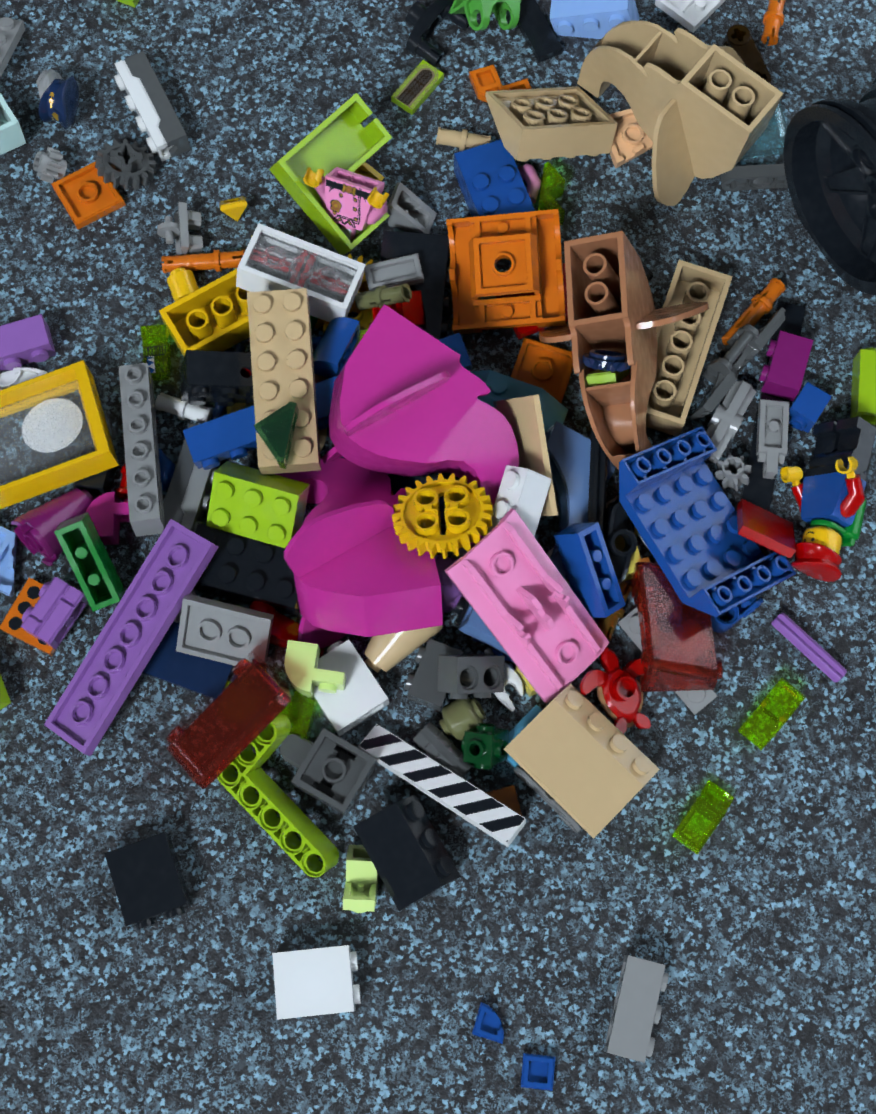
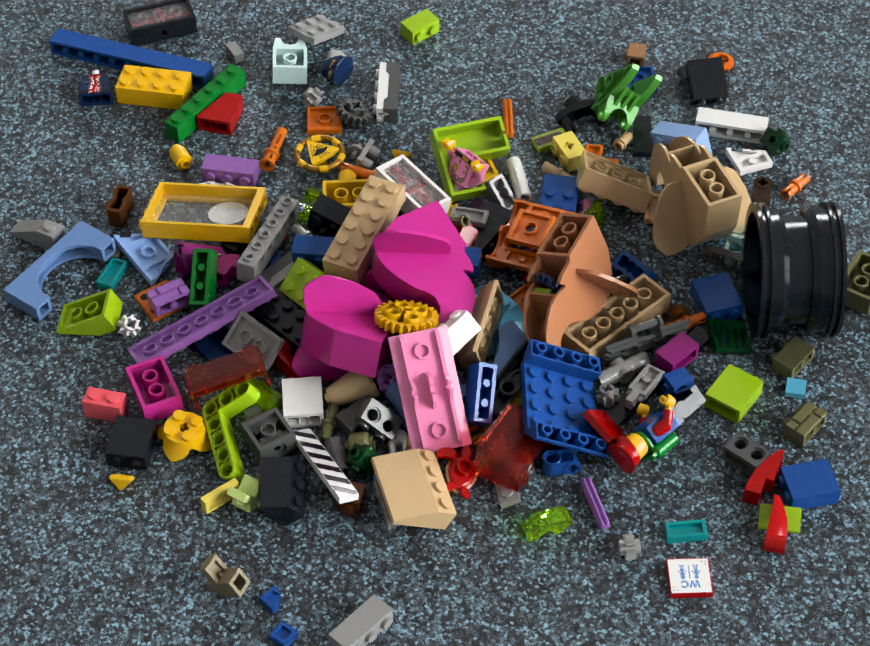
camera: 30 degrees right, 25 degrees down
(33, 685) = (128, 321): none -> white gear
(49, 288) = (280, 135): none -> orange pin
(72, 837) = (104, 404): none -> coral piece
(120, 259) = (320, 153): none -> piece
(128, 779) = (154, 388): none -> dark pink brick
(169, 945) = (121, 480): none -> yellow slope
(215, 851) = (183, 433): none -> yellow brick
(278, 432) = (343, 242): clear green slope -> none
(303, 672) = (286, 376): yellowish green brick -> none
(315, 982) = (188, 530): white brick -> none
(325, 901) = (218, 496): none -> light yellow tile
(337, 71) = (508, 117): none -> orange axle
(399, 704) = (328, 423): none -> olive pin
(414, 1035) = (224, 580): none -> dark tan brick
(417, 175) = (518, 179): none -> white axle
(456, 95) = (568, 150): none -> light yellow brick
(514, 52) = (620, 143): none -> tan pin
(654, 250) = (632, 266): none -> blue brick
(703, 817) = (464, 554): clear neon green slope -> none
(743, 293) = (677, 311): none -> clear orange tile
(779, 247) = (716, 297): none -> blue brick
(826, 300) = (729, 336): none -> dark green tile

